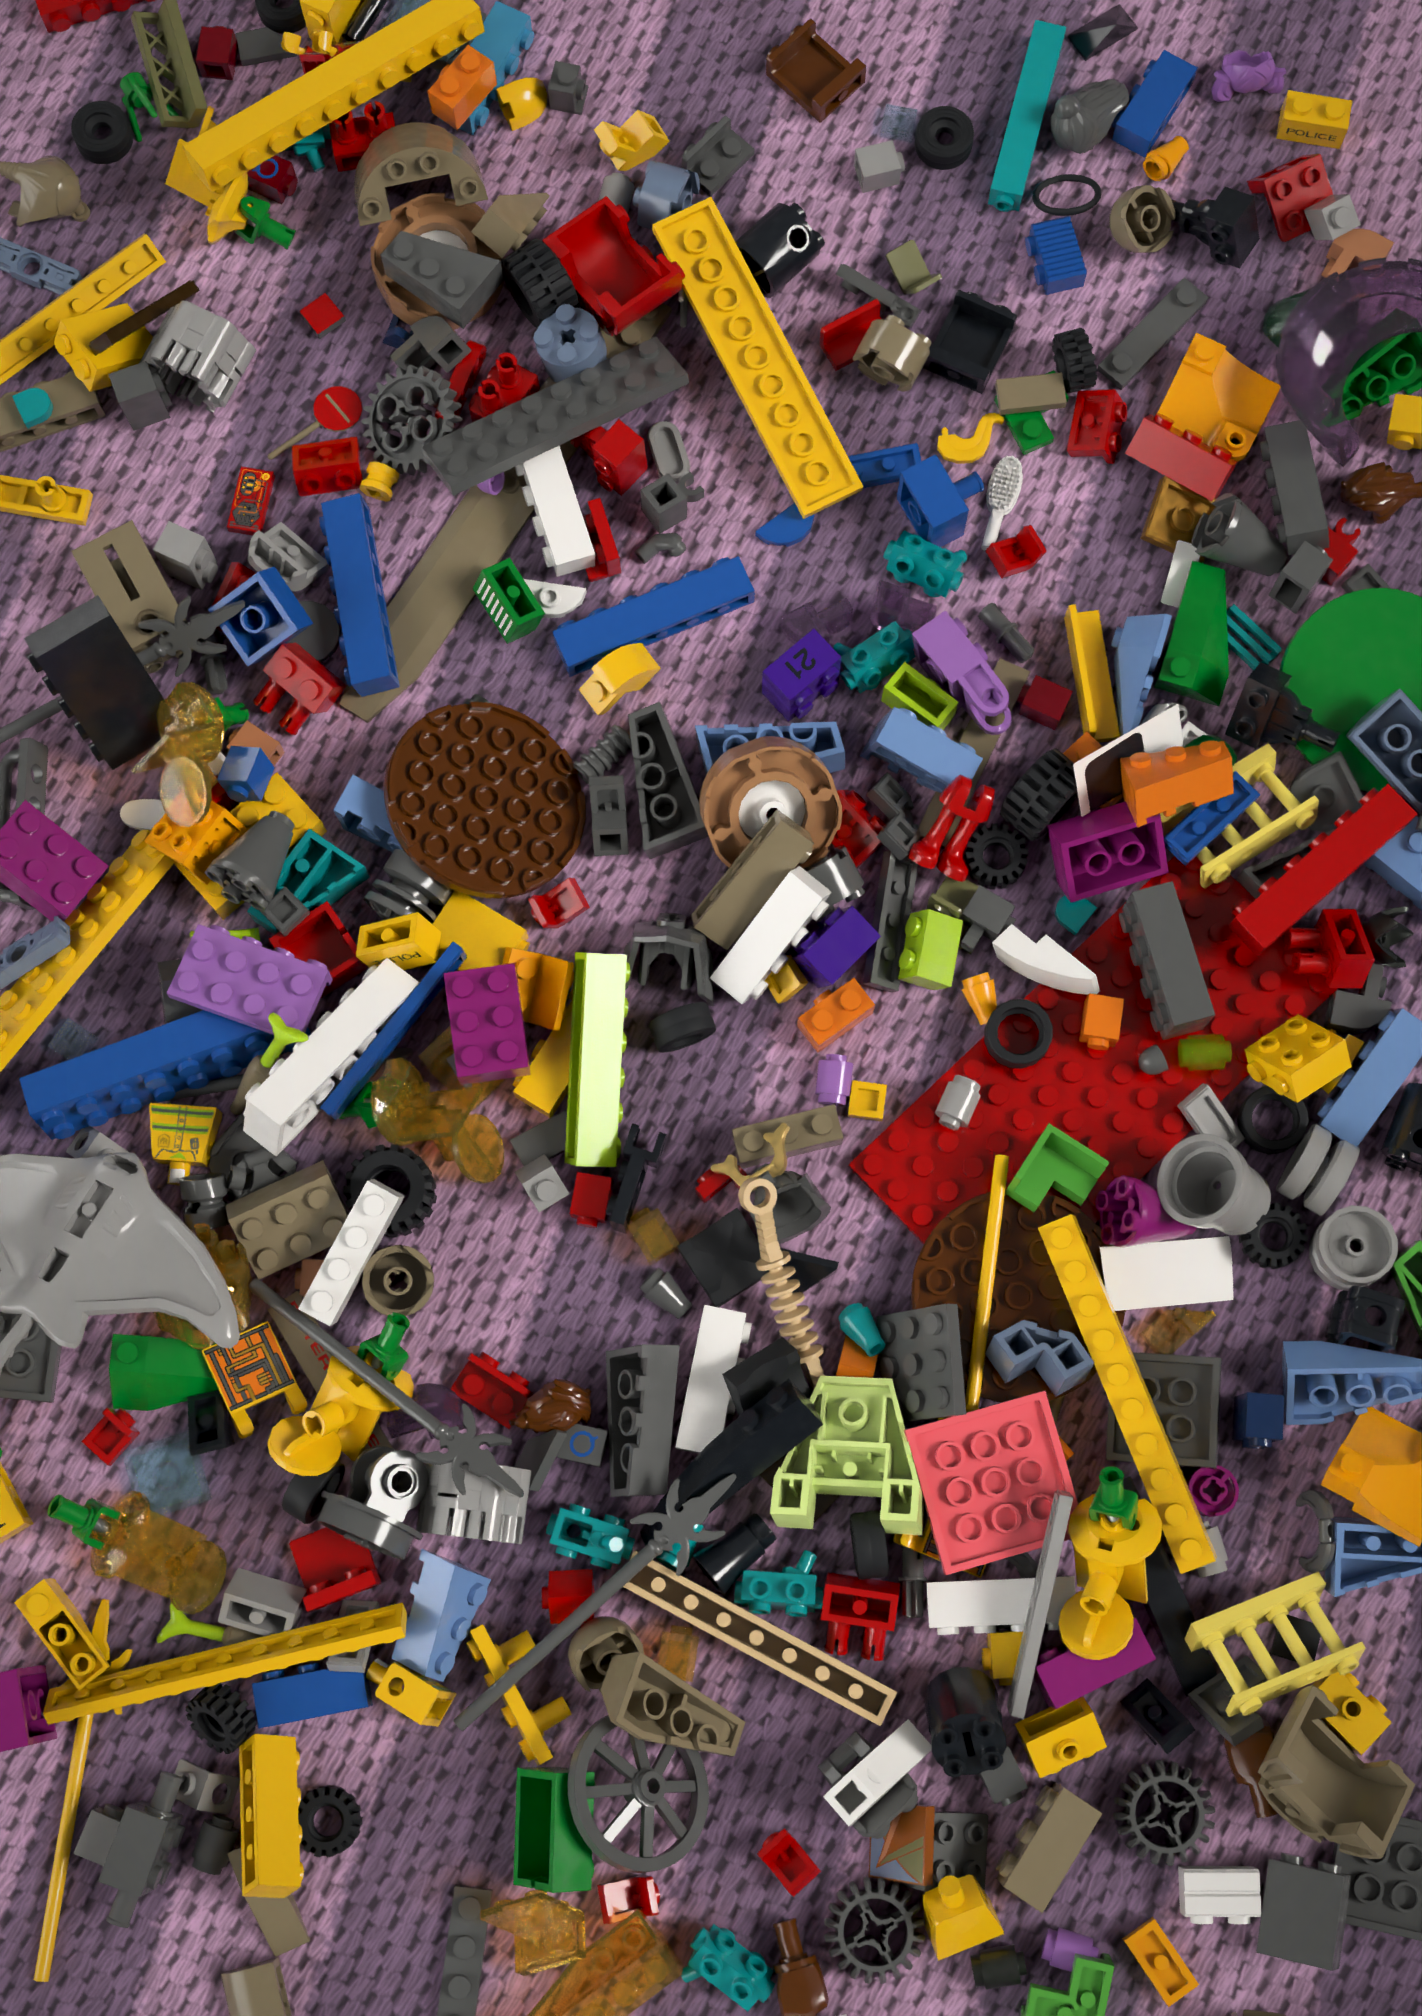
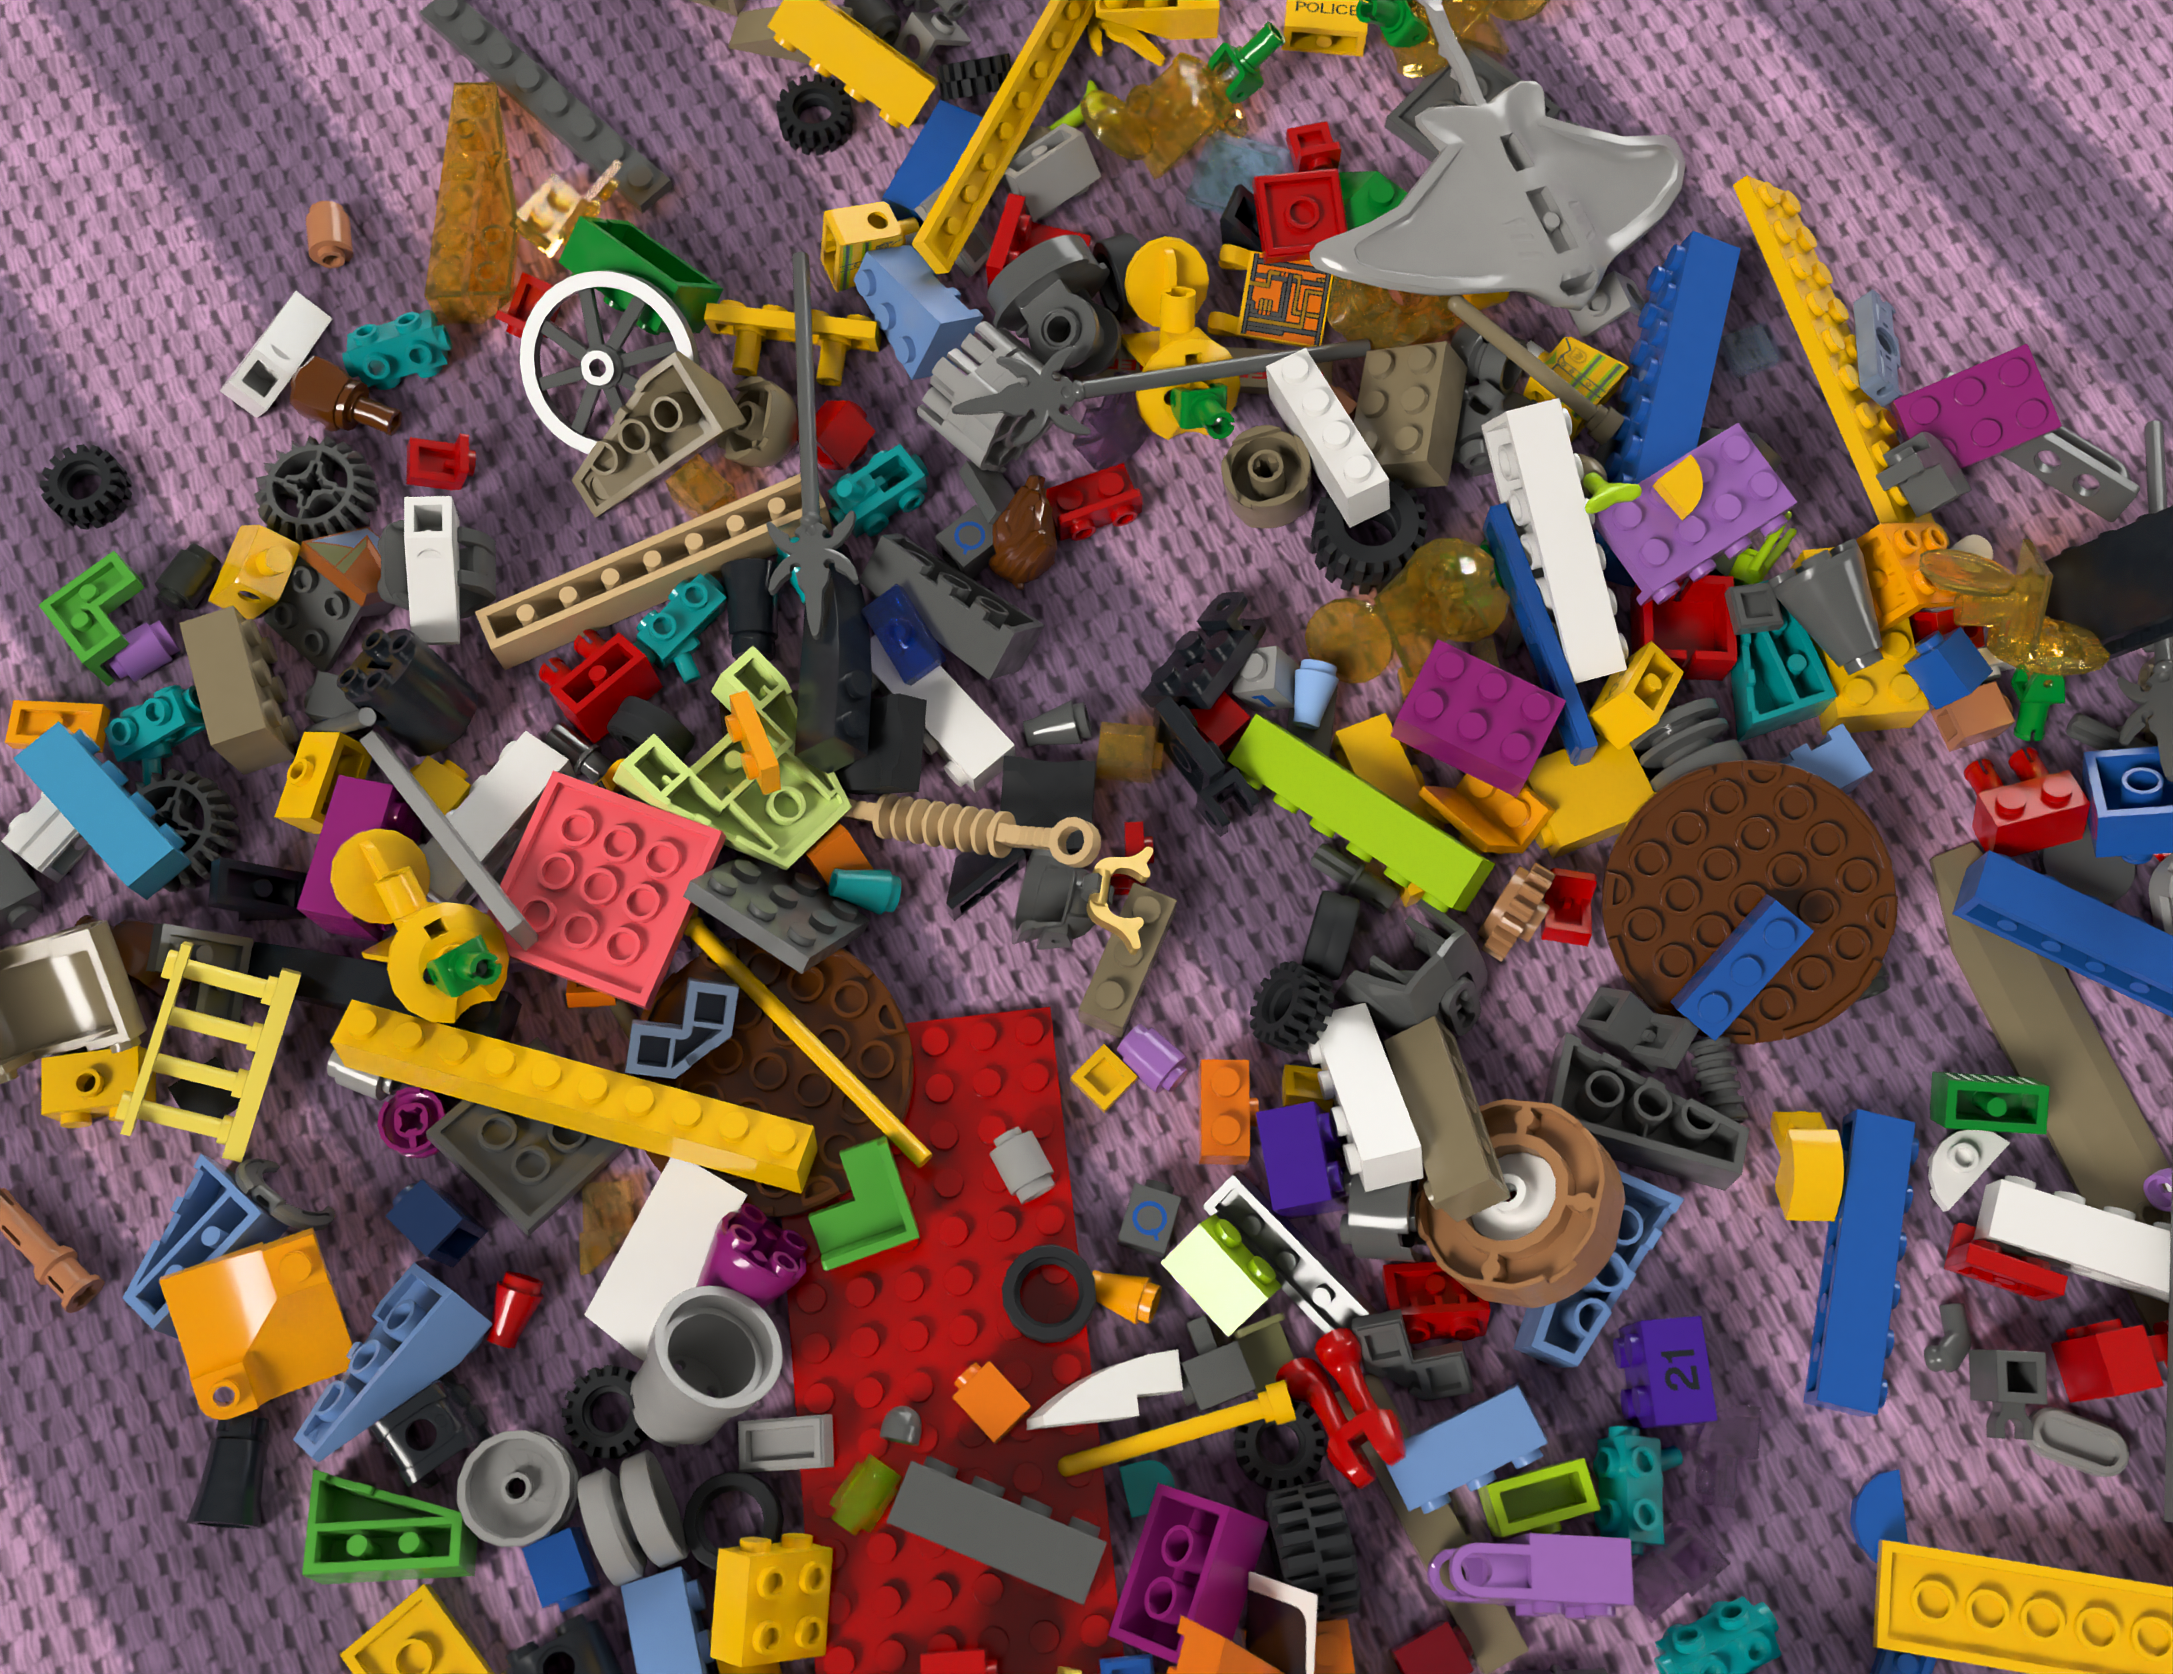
camera: 125 degrees right, 5 degrees down
(115, 864) = (1924, 473): none -> dark grey brick
(183, 1395) = (1297, 212): none -> red tile
(205, 1092) = (1599, 420): none -> dark tan piece
(245, 993) = (1681, 487): none -> yellow tile
(529, 1147) = (1313, 691): none -> light blue cone
(533, 776) = (1741, 967): none -> blue brick
(543, 1223) = (1207, 658): none -> black plate
(587, 928) = (1516, 911): none -> medium nougat gear
(633, 1055) = (1354, 878): none -> dark grey axle
(686, 1427) = (903, 634): none -> clear blue plate
(742, 1004) = (1291, 1008): none -> black tyre
(828, 1469) = (758, 759): none -> light orange plate
(929, 1013) = (1149, 1218): none -> dark grey brick
(984, 869) = (1271, 1405): none -> yellow piece
(1020, 1750) = (346, 722): none -> dark grey bar
(1112, 1881) = (155, 727): none -> teal brick
(1192, 1856) = (103, 810): none -> dark azure brick
(1261, 1341) = (513, 1307): none -> red cone
(1373, 1189) = (562, 1569): none -> blue brick

